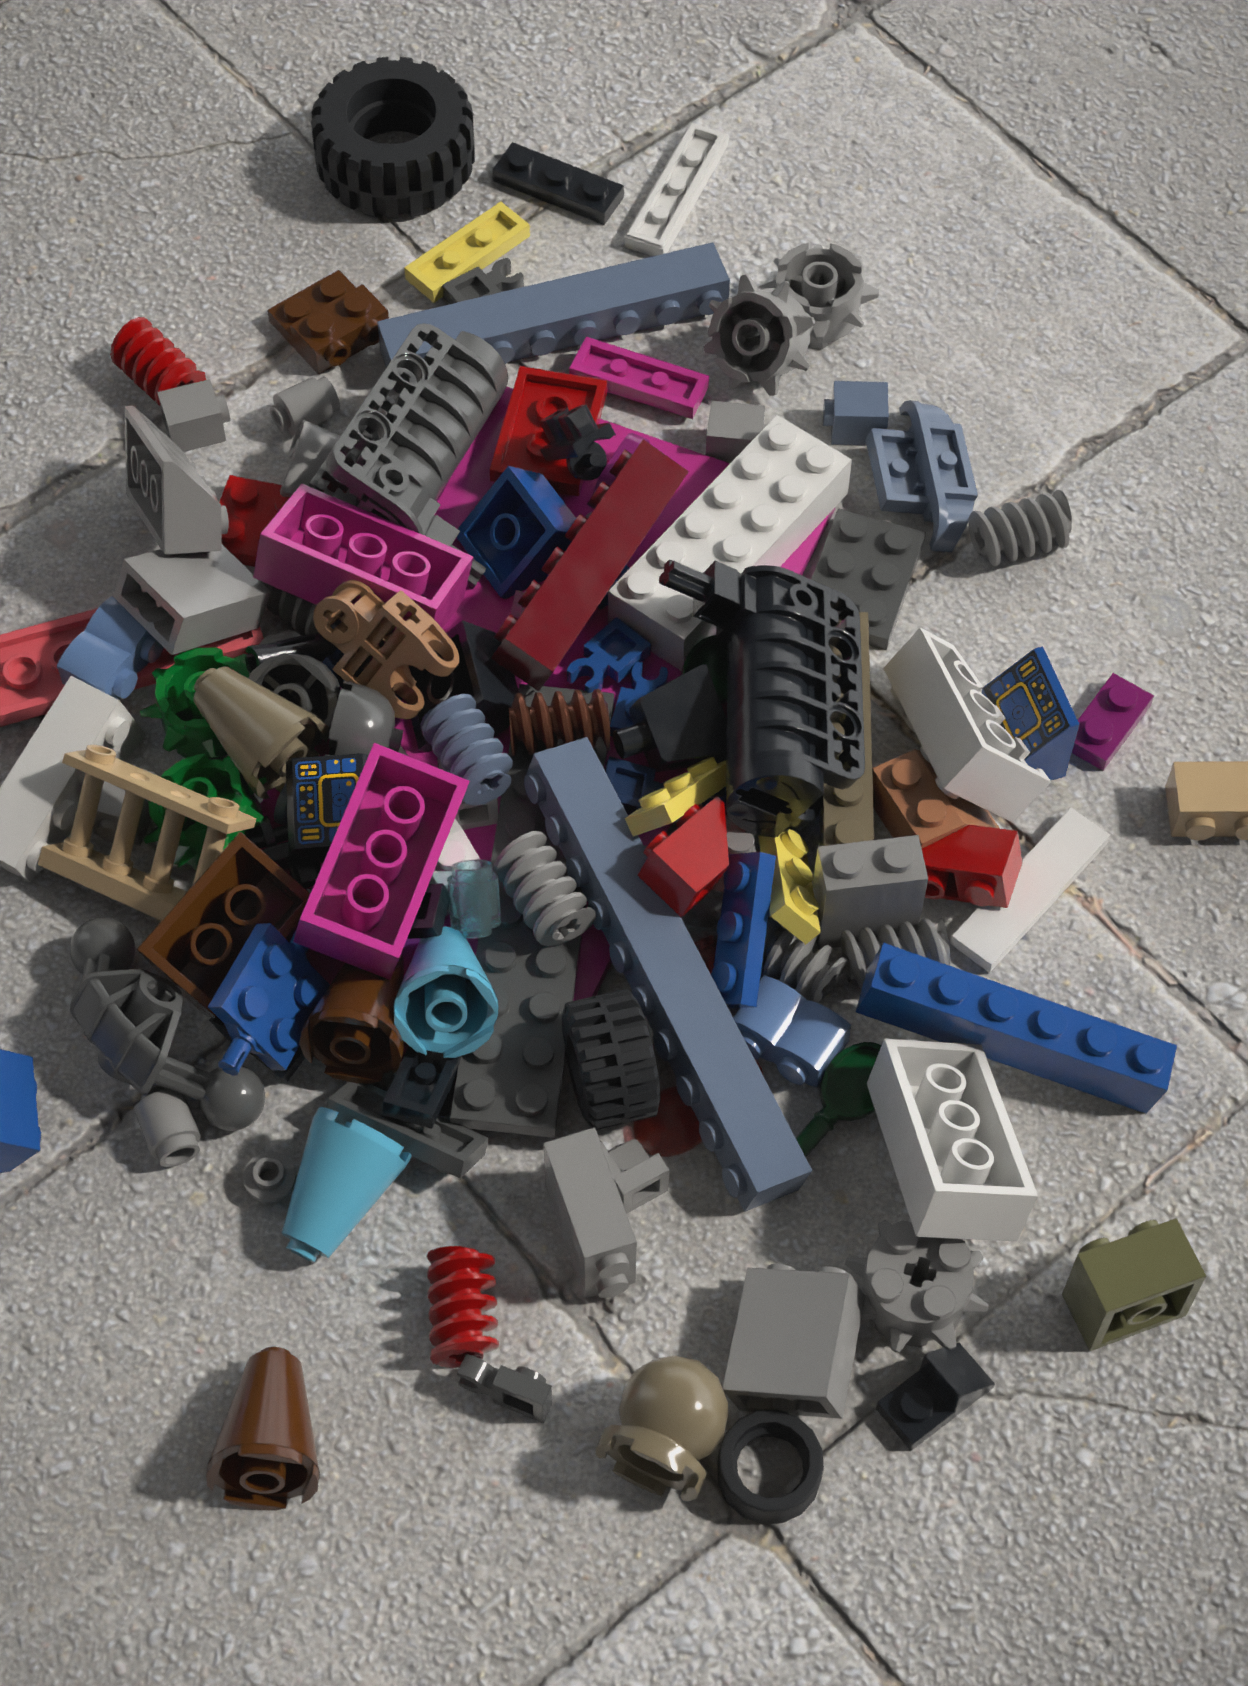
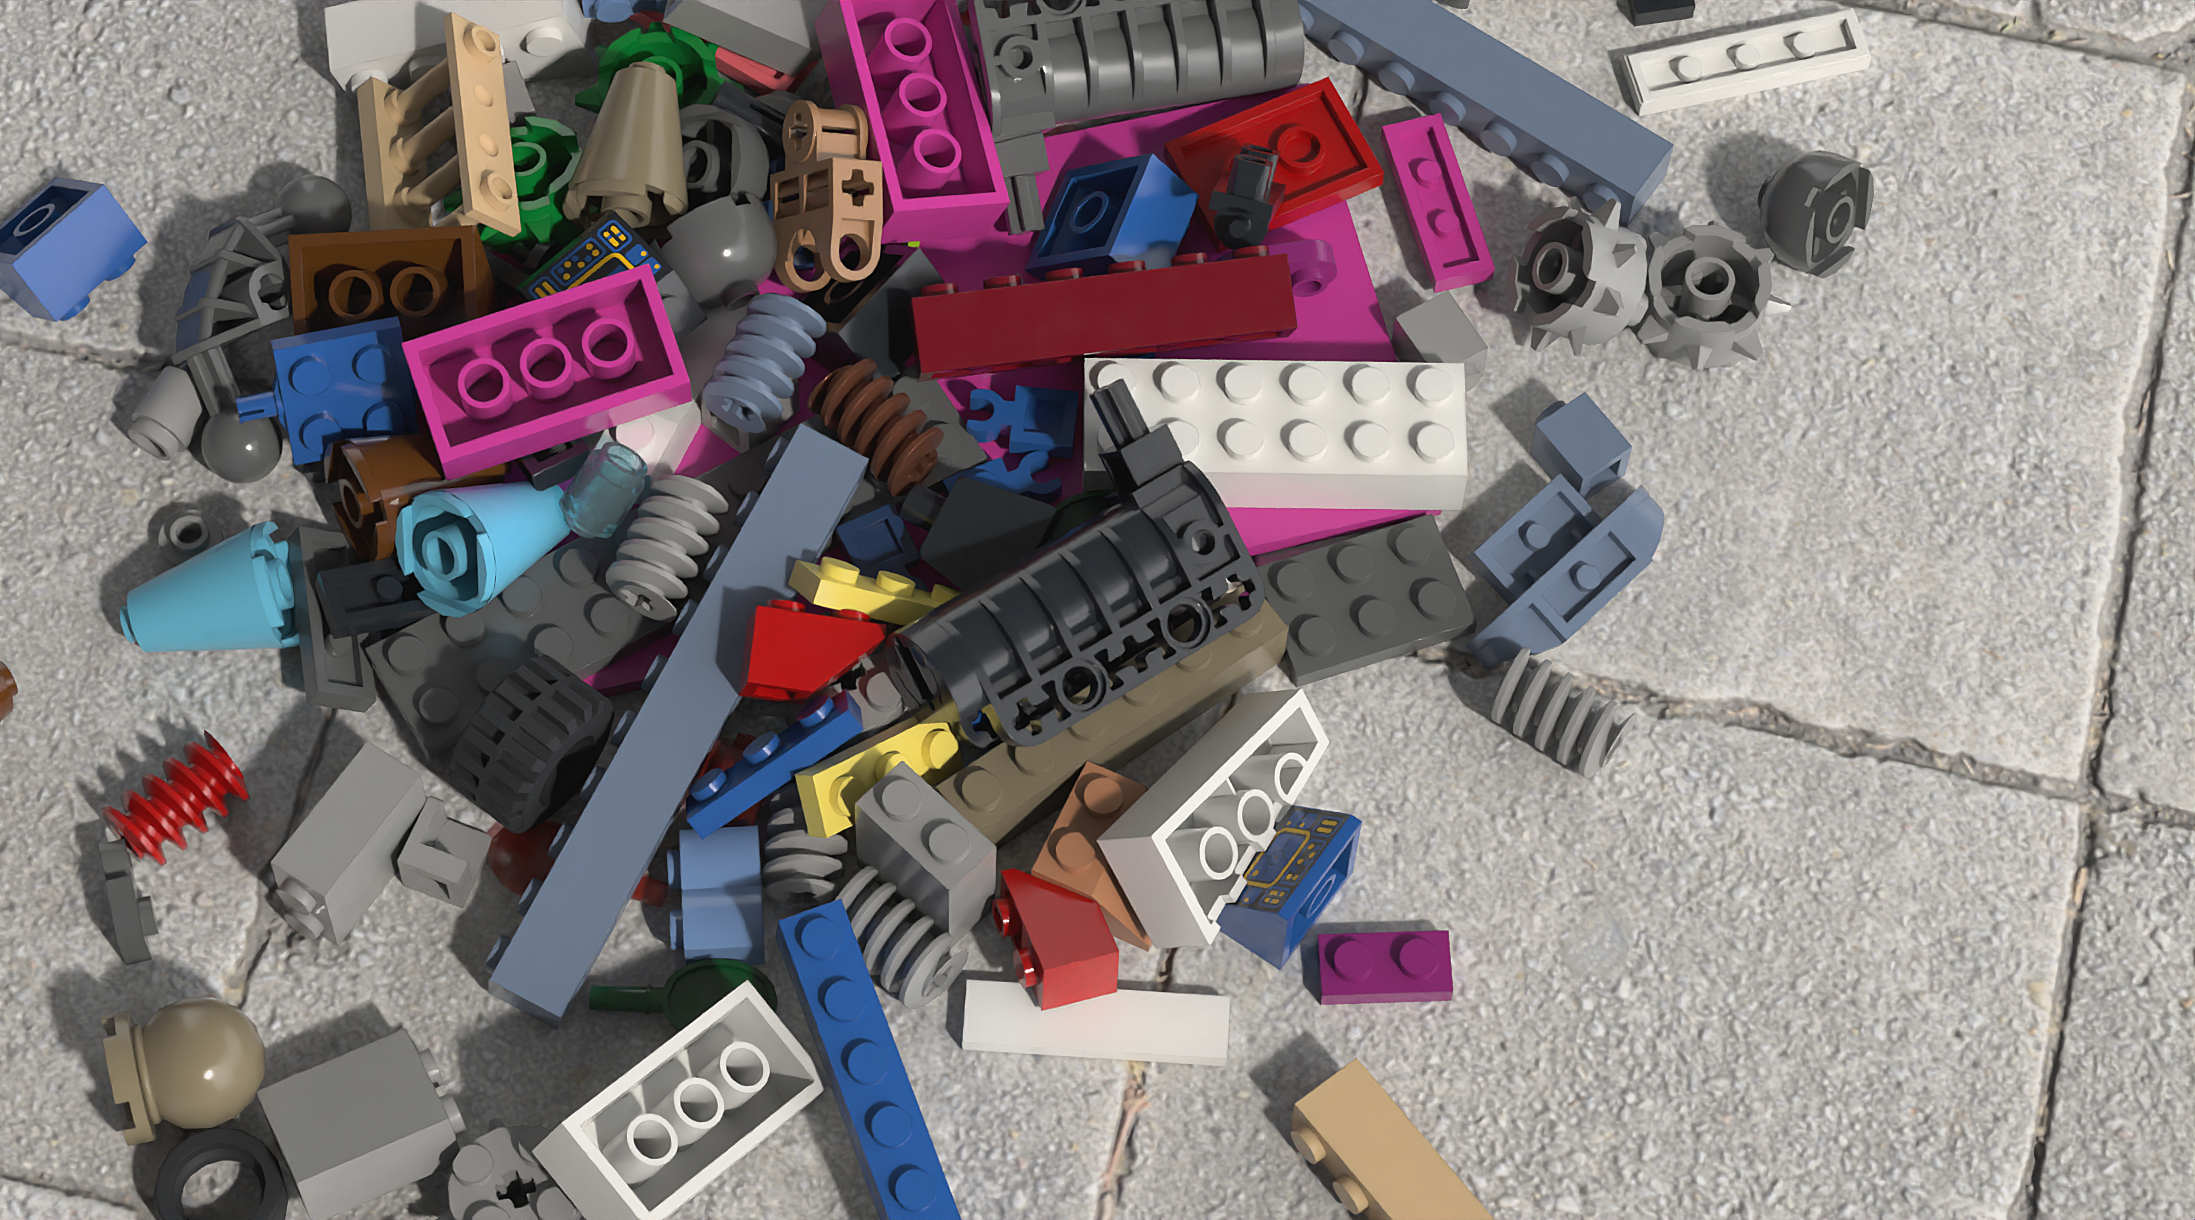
camera: 50 degrees right, 5 degrees up
(803, 212) = (1813, 210): none -> dark grey cylinder

